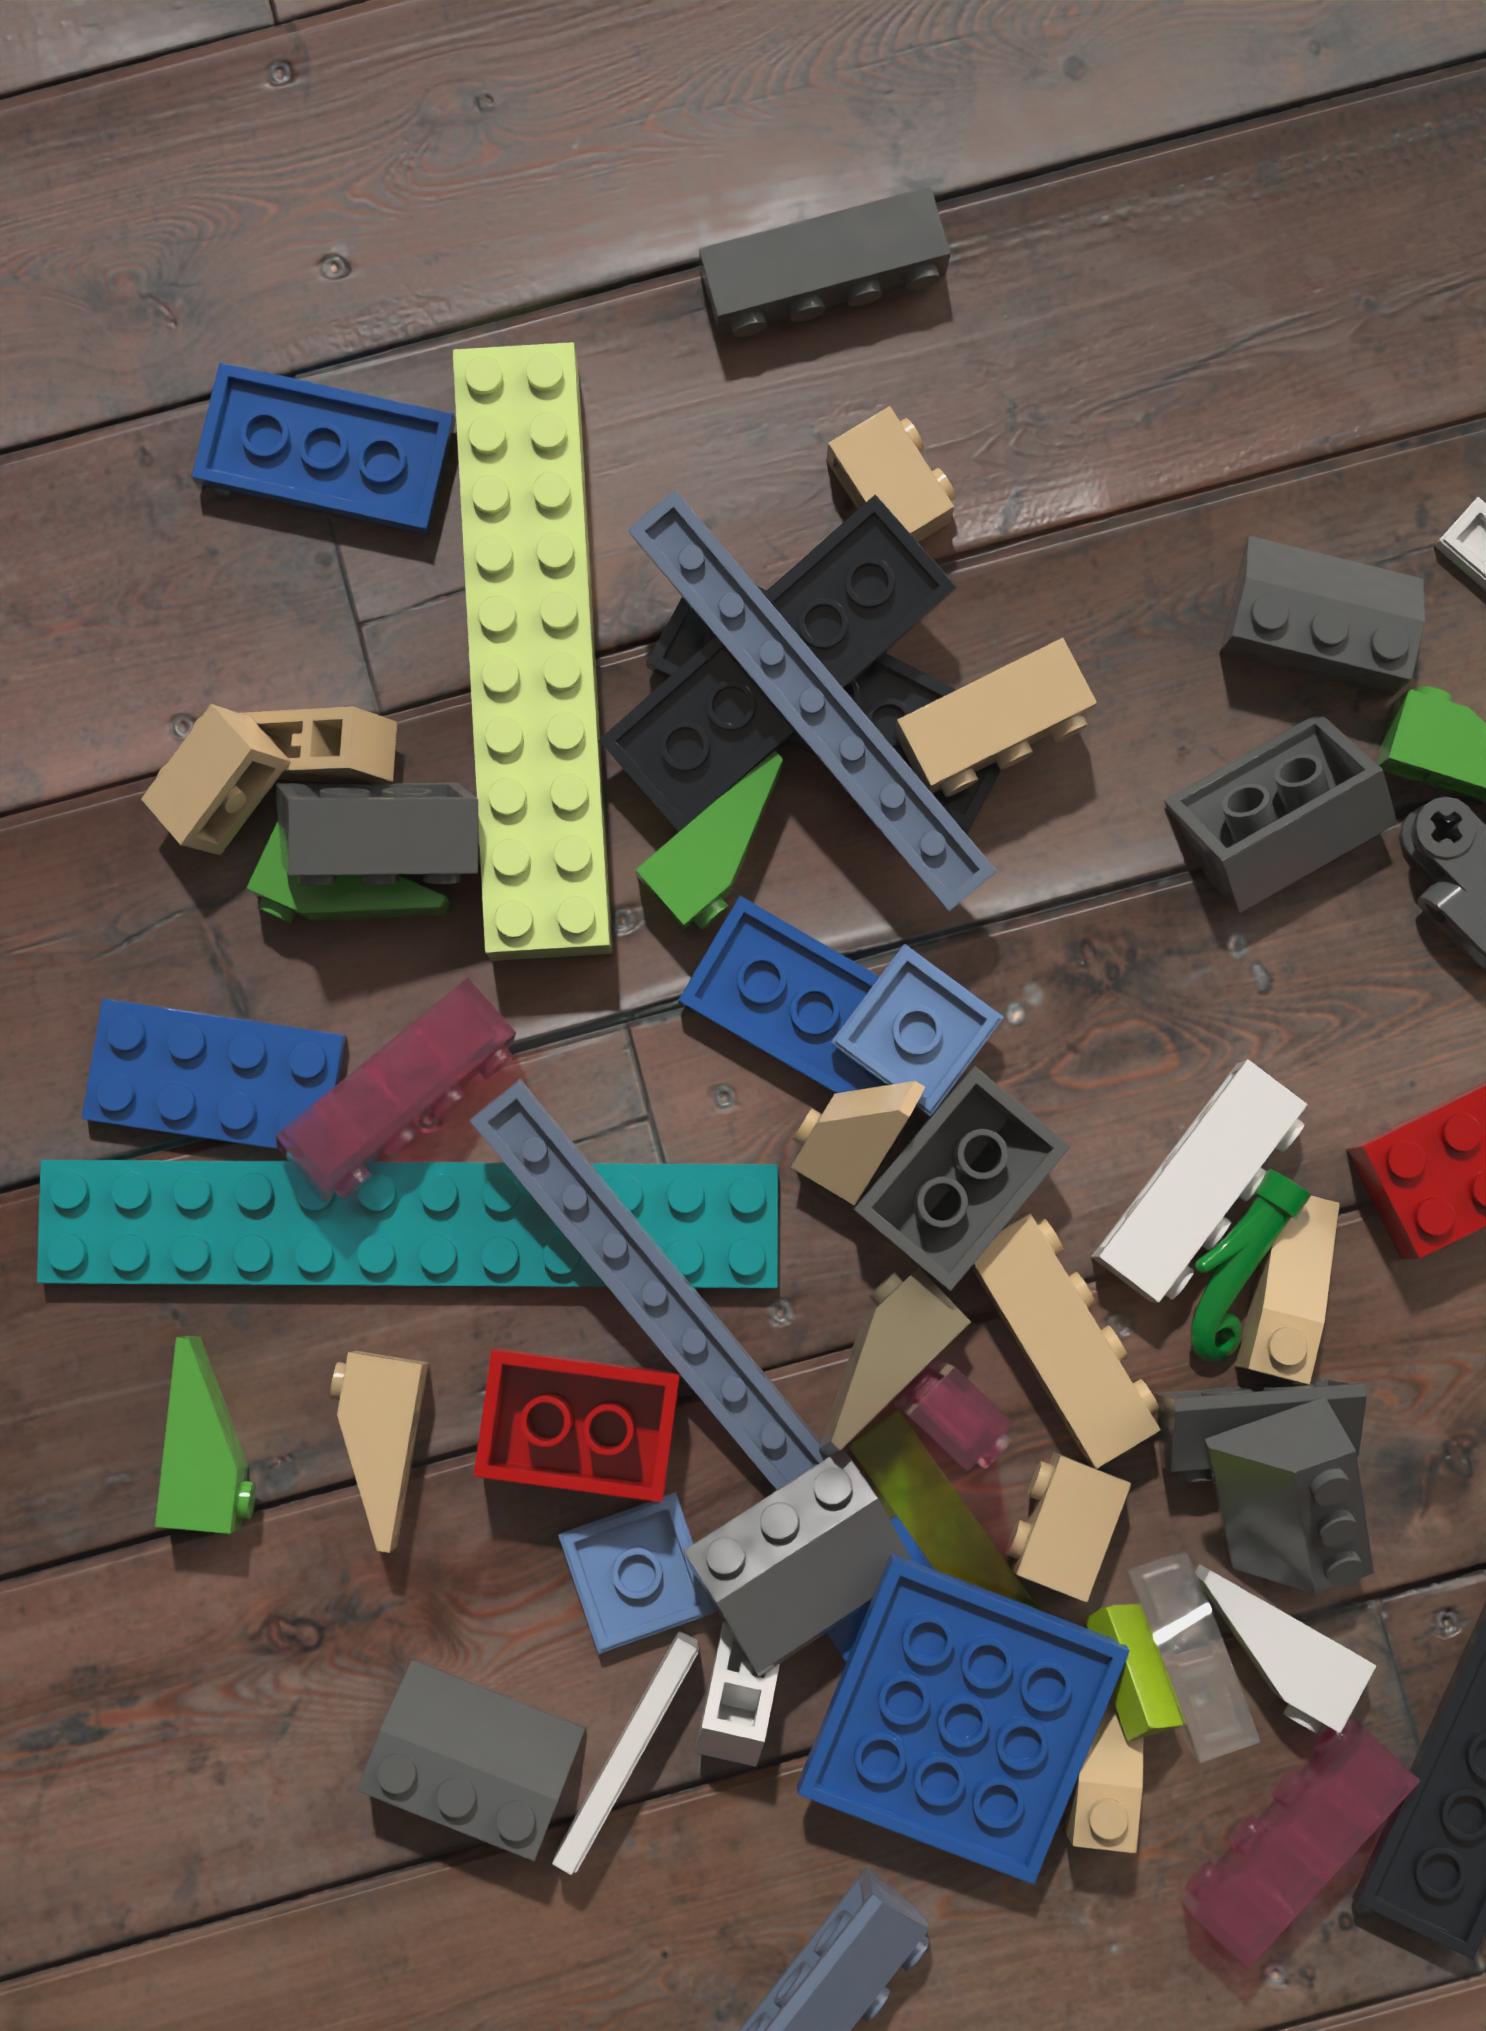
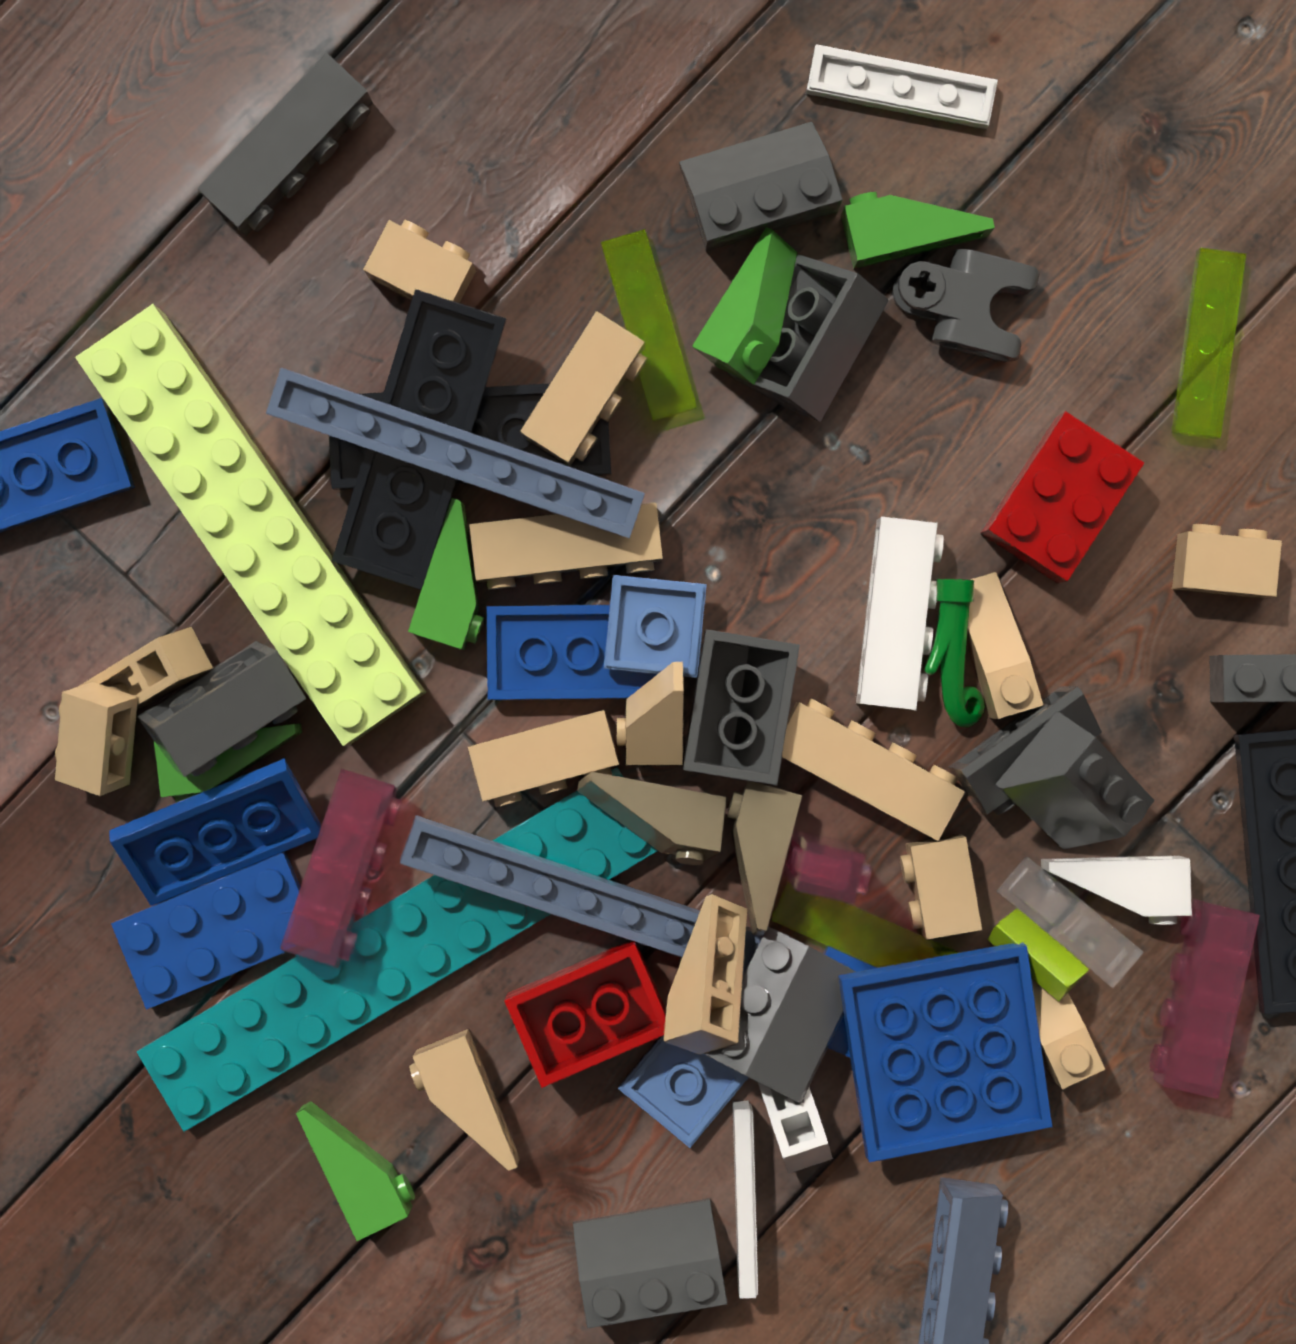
camera: 30 degrees left, 5 degrees up
(283, 965) = (216, 832): none -> blue plate
(702, 1104) = (543, 757): none -> tan brick
(738, 1469) = (708, 983): none -> tan slope
(798, 1249) = (664, 816): none -> dark tan slope
(866, 877) = (559, 545): none -> tan brick
(1115, 676) = (648, 318): none -> clear neon green tile
(1234, 745) = (751, 312): none -> bright green slope

